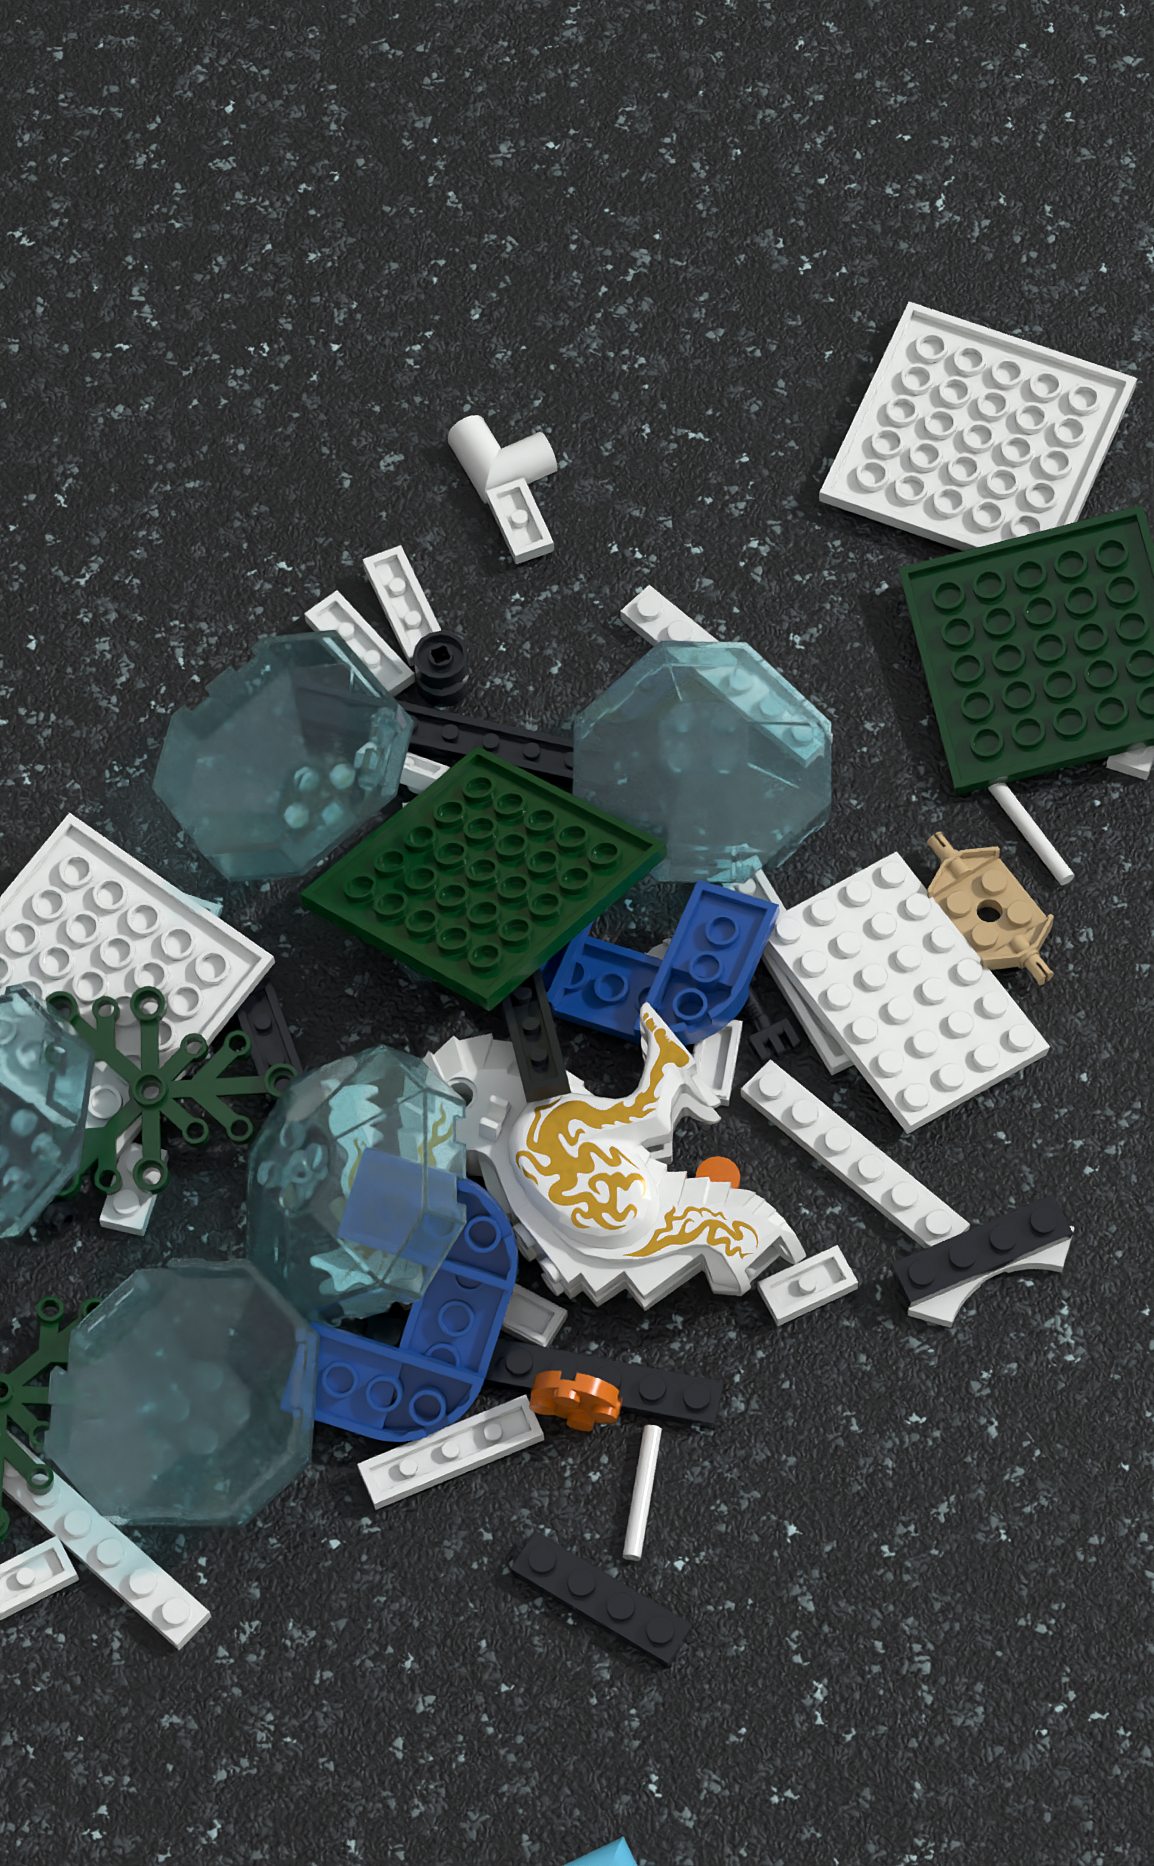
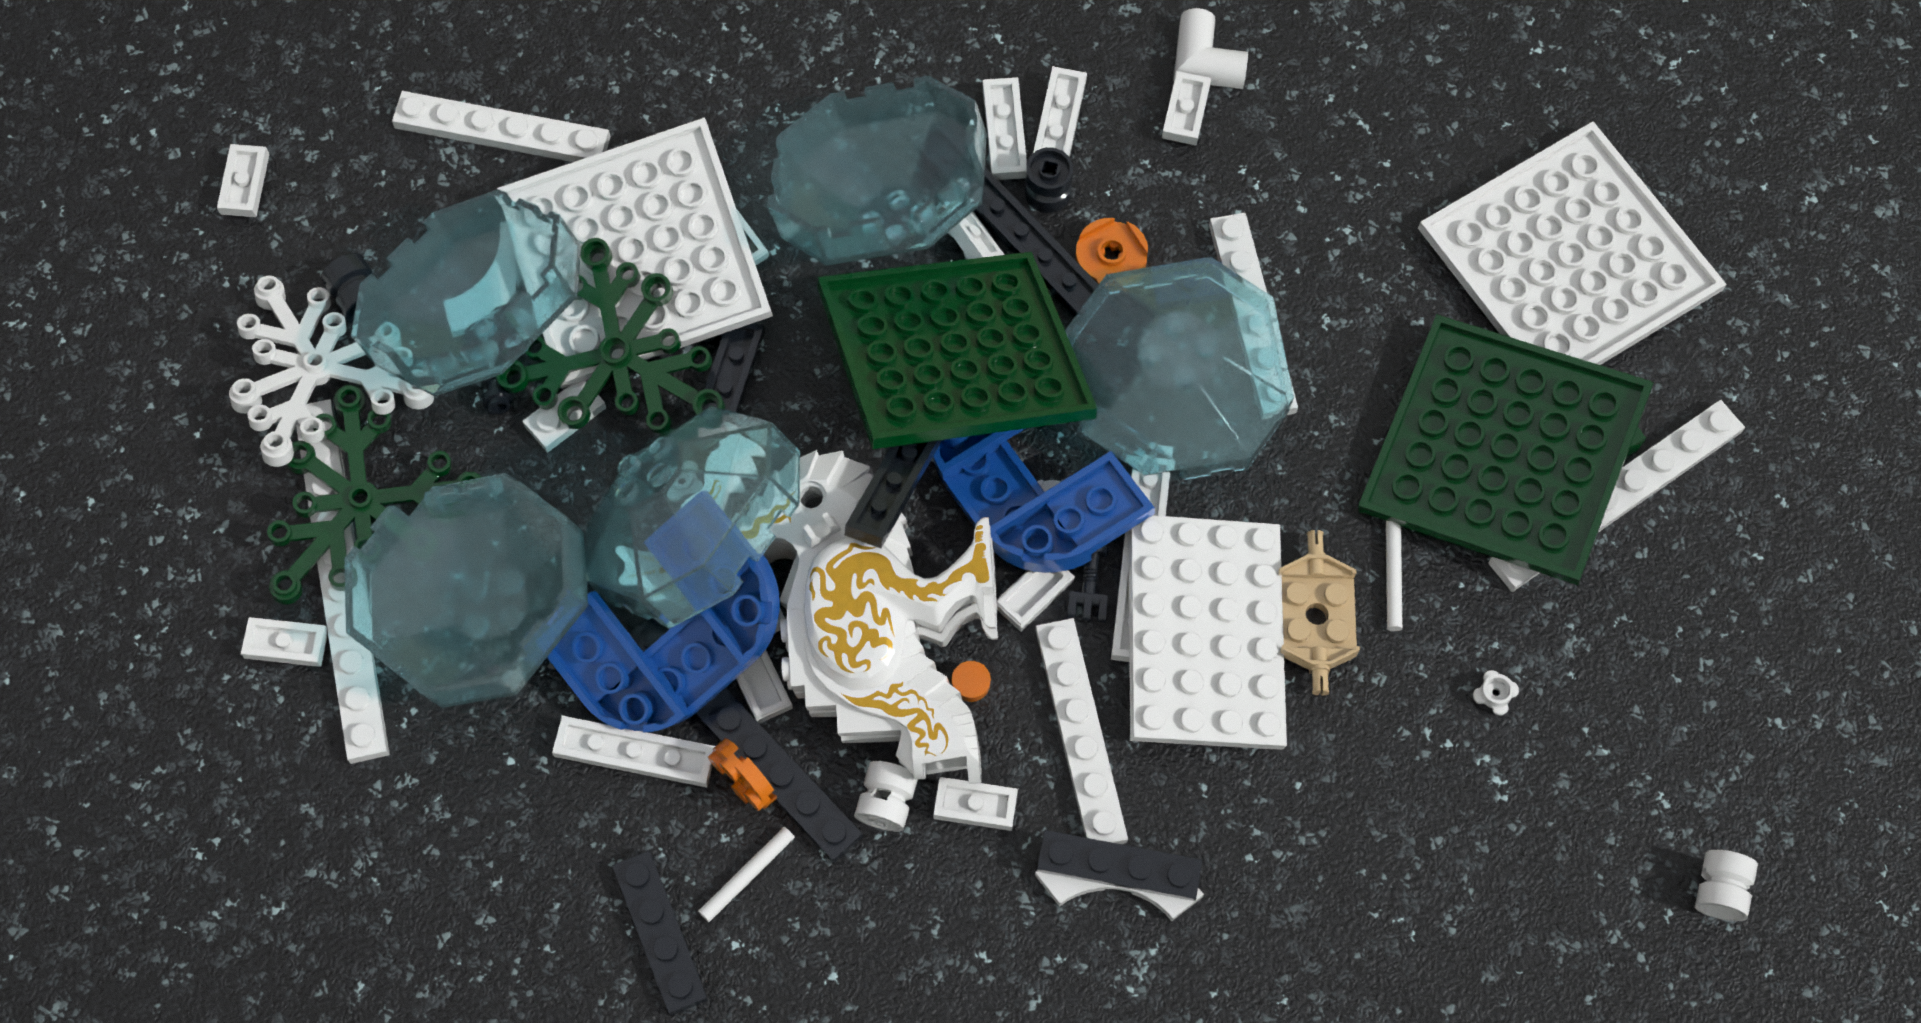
camera: 30 degrees right, 5 degrees up
(544, 682) = (1116, 236): none -> orange plate
(723, 1336) = (886, 782): none -> white wheel

